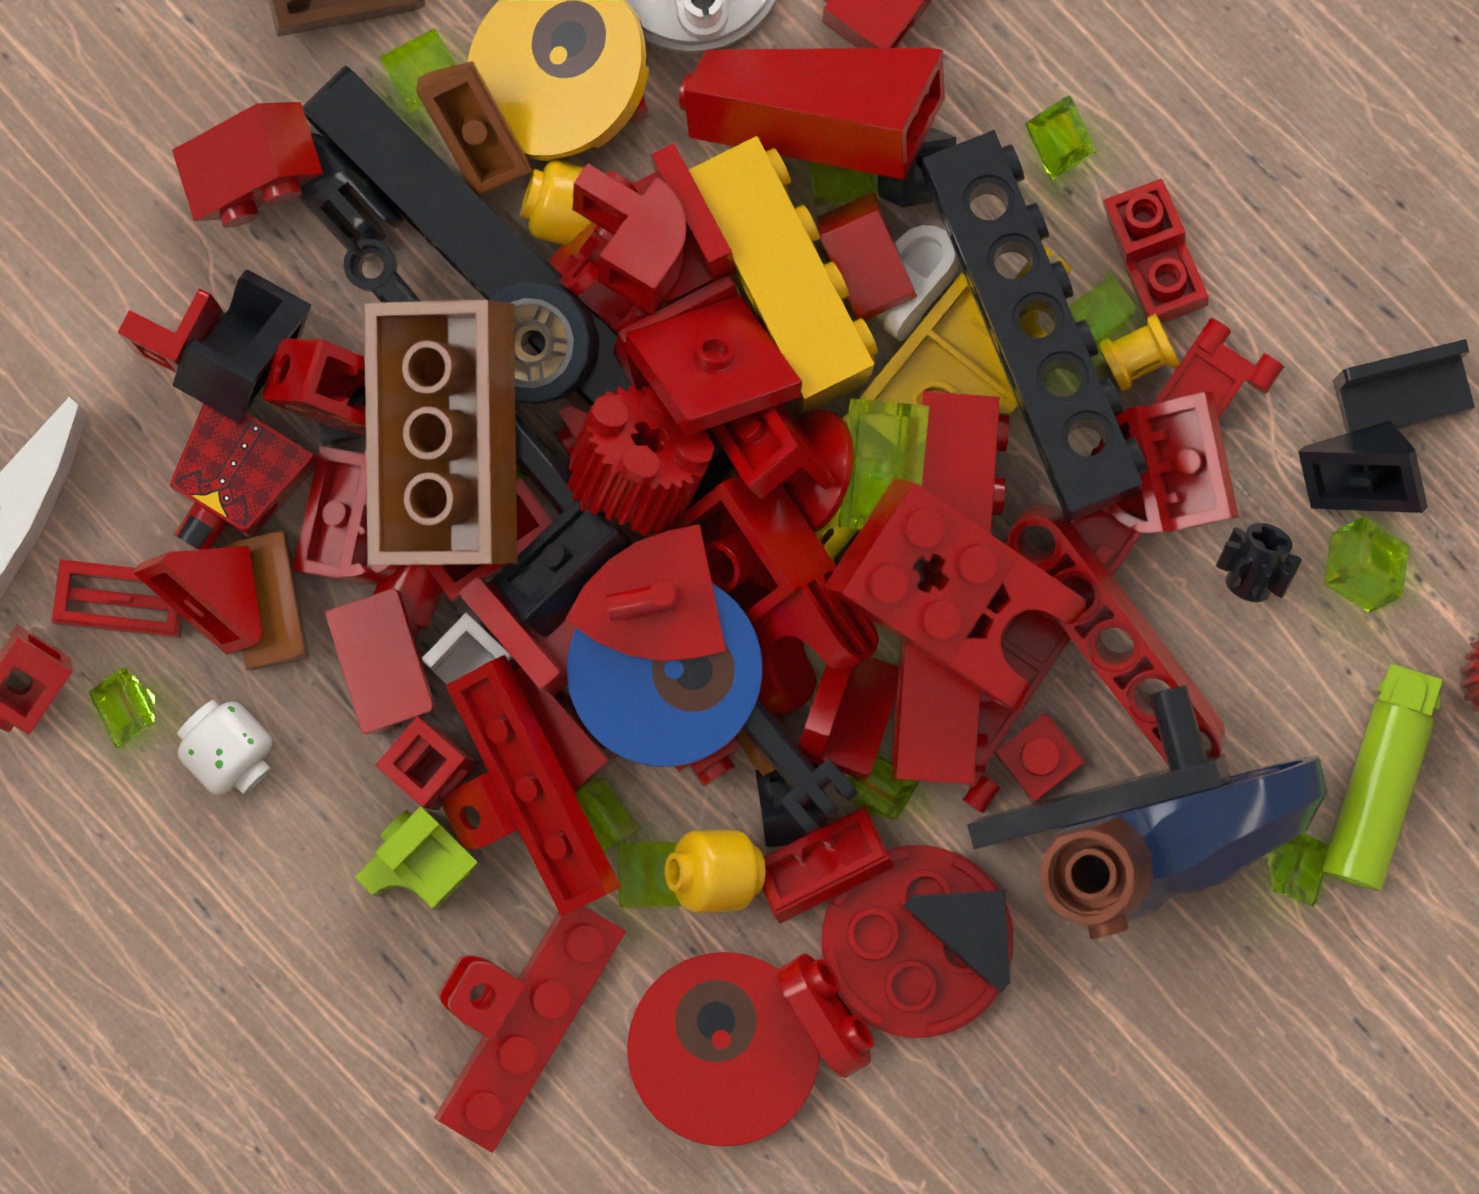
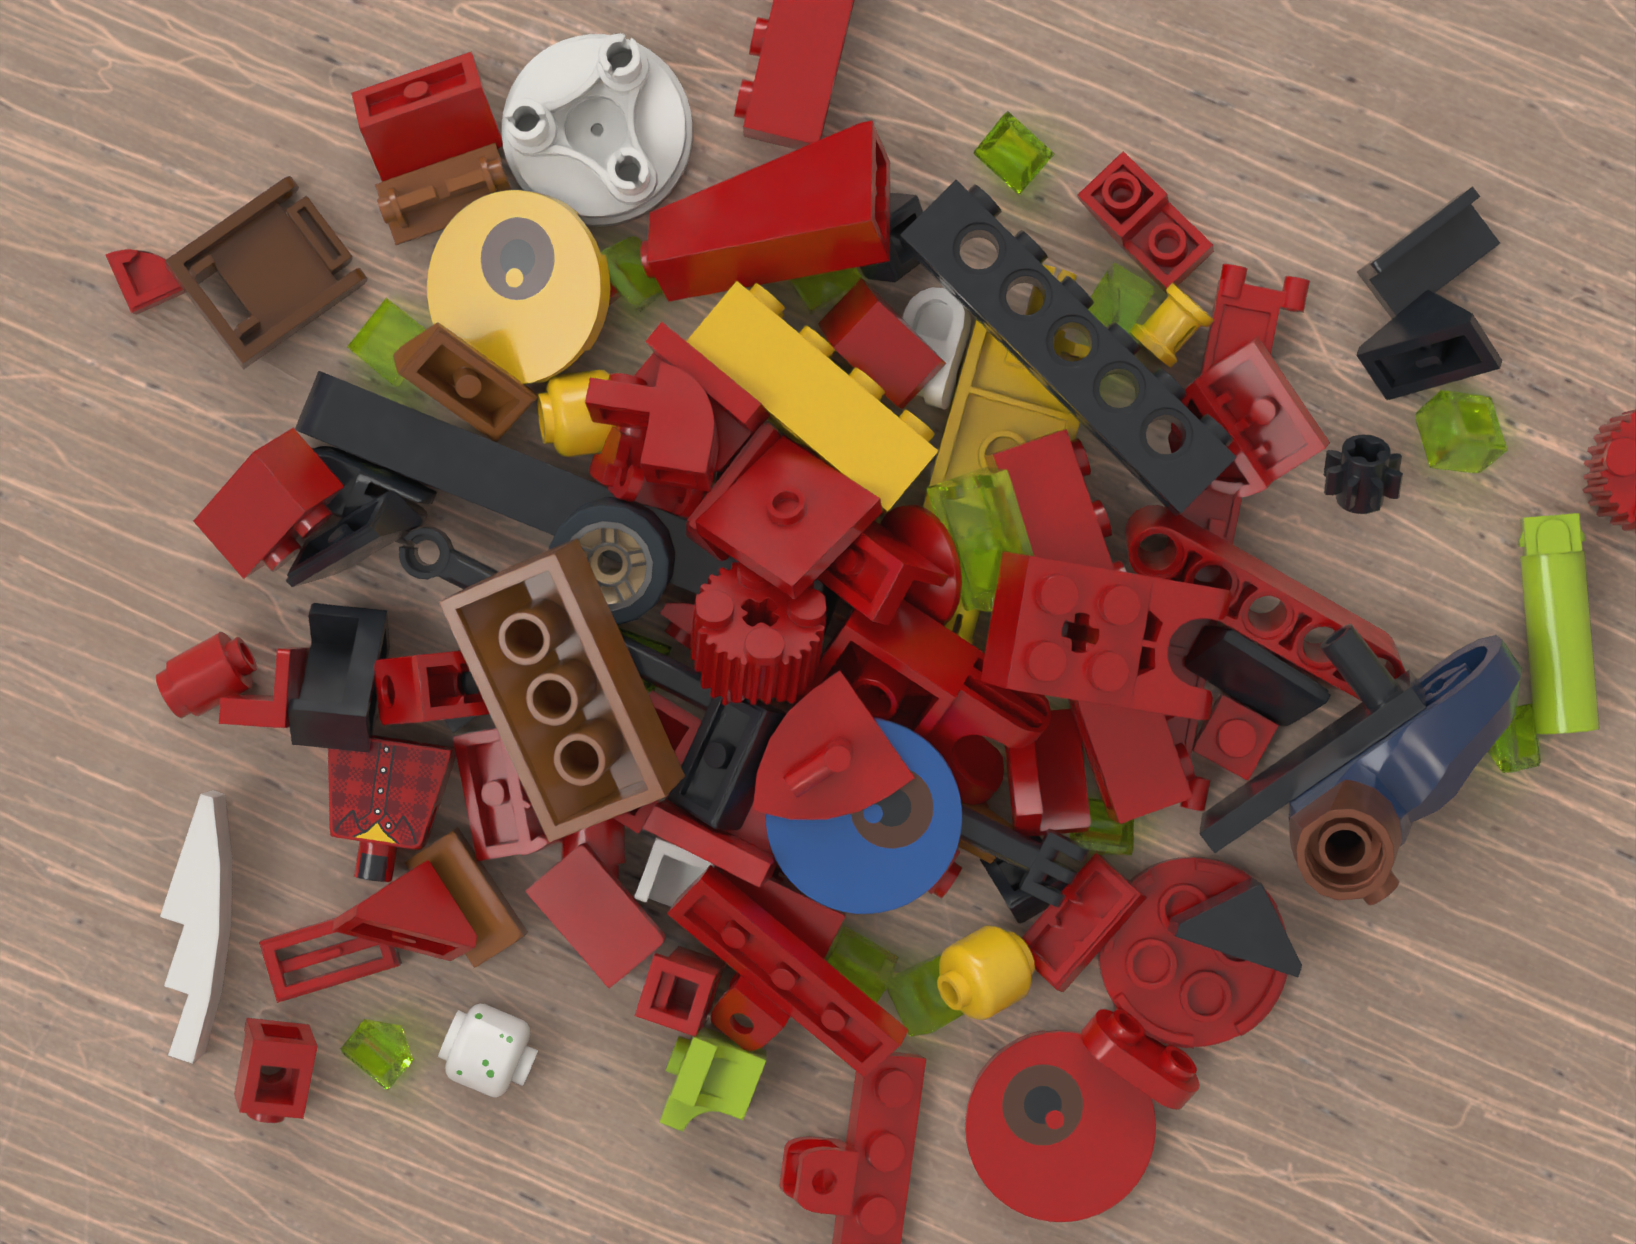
camera: 15 degrees left, 5 degrees up
(111, 291) = (205, 674): none -> red brick
(310, 228) = (353, 538): none -> black slope
(663, 100) = (629, 275): none -> clear neon green slope
(1080, 705) = (1254, 676): none -> black slope

